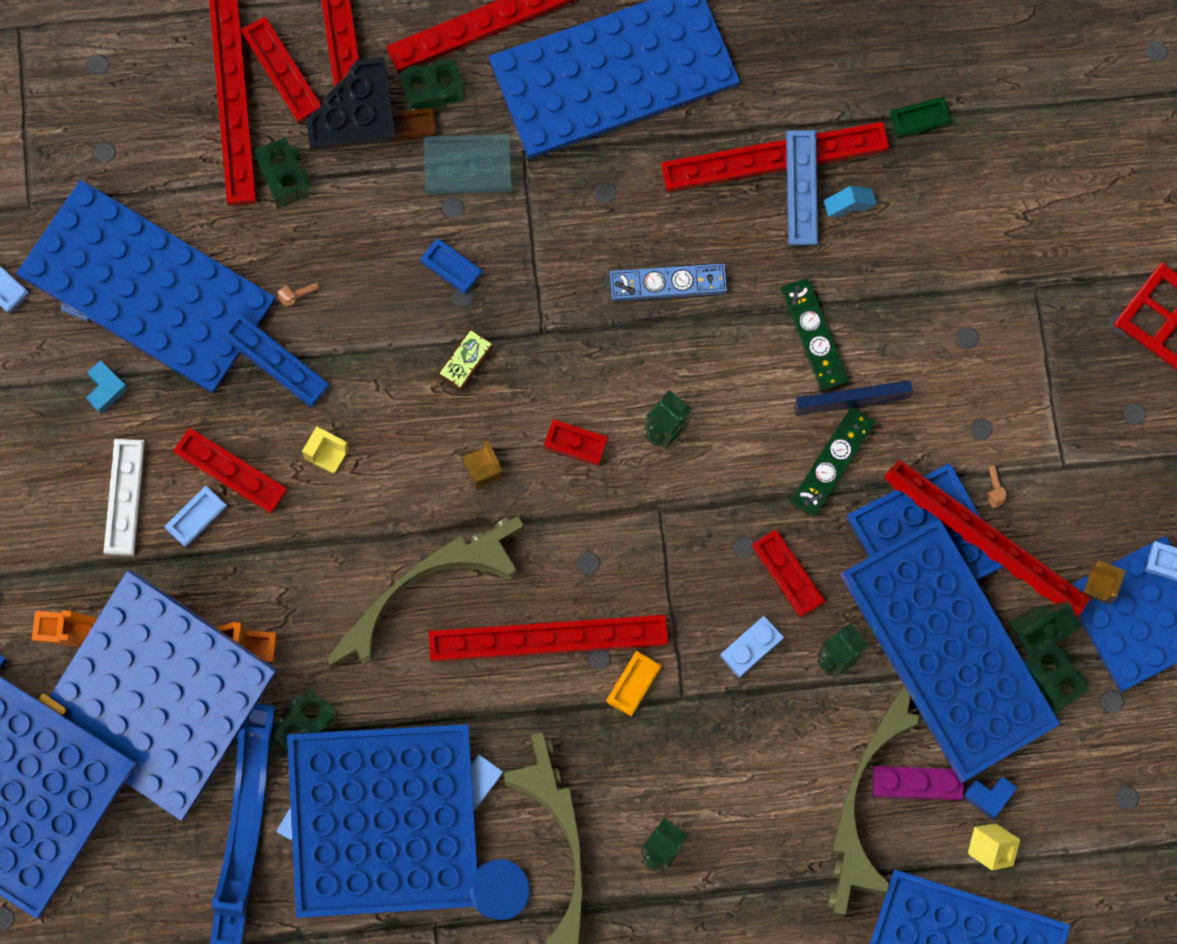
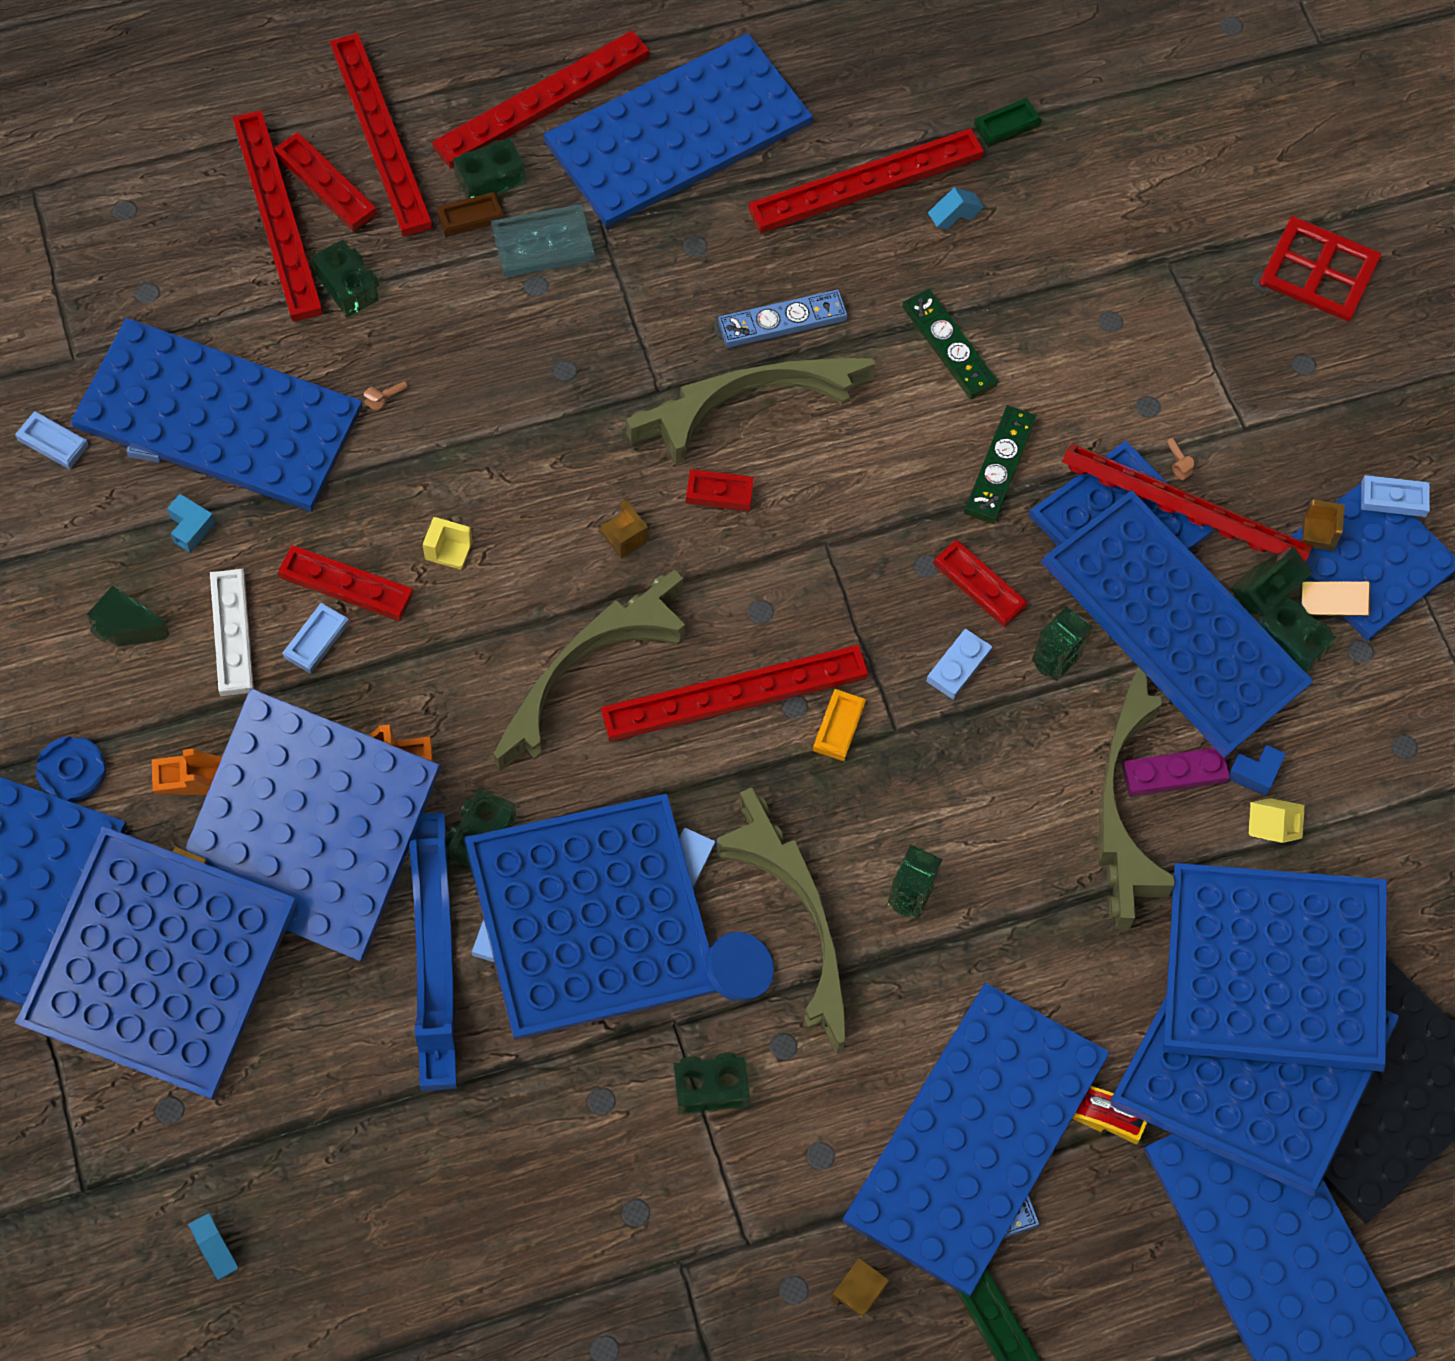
camera: 10 degrees left, 10 degrees down
(33, 472) = (124, 620): none -> clear green slope
(274, 359) = (373, 461): blue tile -> none
(355, 109) = (412, 201): black plate -> none
(451, 266) = (546, 341): blue tile -> none
(465, 360) = (581, 430): tile -> none
(554, 367) = (680, 418): none -> olive slope
(666, 420) = (815, 446): clear green brick -> none
(801, 188) = (902, 203): medium blue tile -> none
(853, 397) = (1010, 393): dark blue tile -> none
(1100, 651) = (1336, 598): none -> tile

